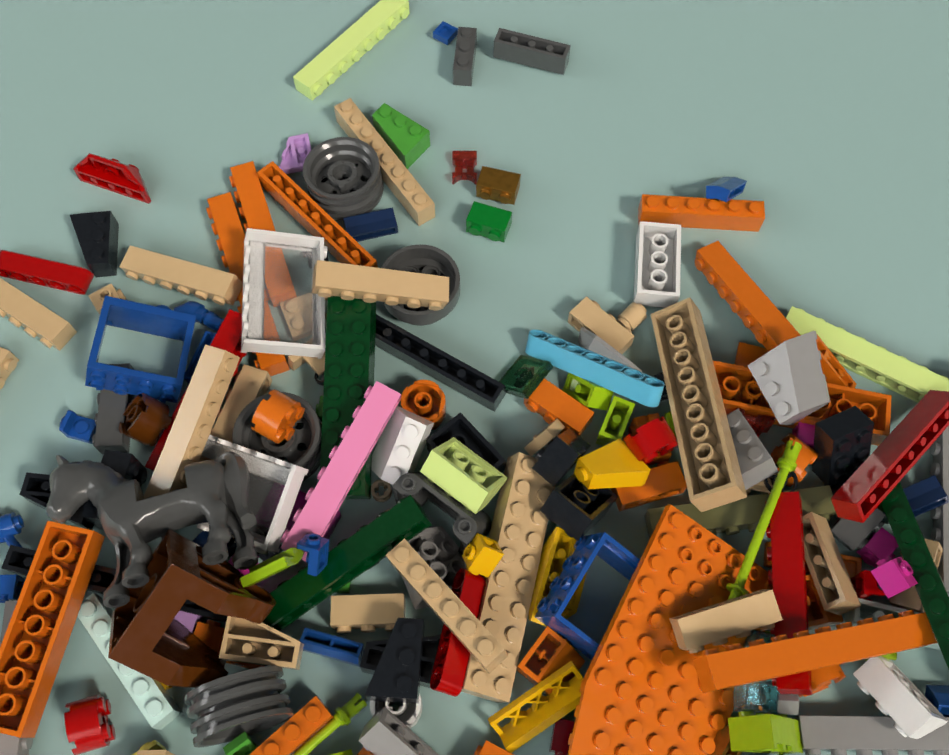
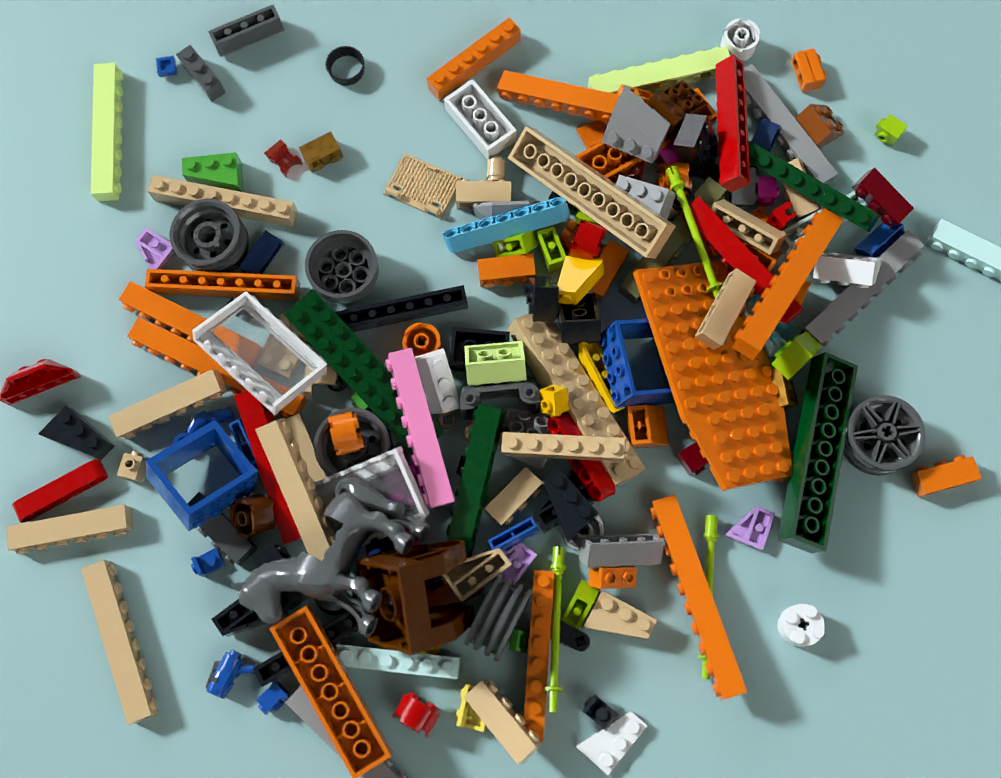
camera: 40 degrees left, 10 degrees up
(272, 566) = (442, 521): lime slope -> none
(314, 674) = (520, 558): none -> lavender wing
(317, 552) = (454, 486): blue bracket -> none
(380, 285) = (326, 290): tan brick -> none
(488, 222) = (340, 183): green brick -> none
(525, 376) = (467, 267): clear green tile -> none
(544, 437) = (517, 295): tan piece -> none
(544, 709) = (668, 455): yellow fence -> none
(556, 279) = (422, 185): none -> tan window
(585, 122) = (340, 52): none -> black tyre
(725, 188) = (476, 28): blue piece -> none
(787, 704) = (794, 327): light grey piece -> none
(854, 388) = (675, 103): none -> reddish brown slope
(894, 575) = (792, 200): dark pink brick -> none

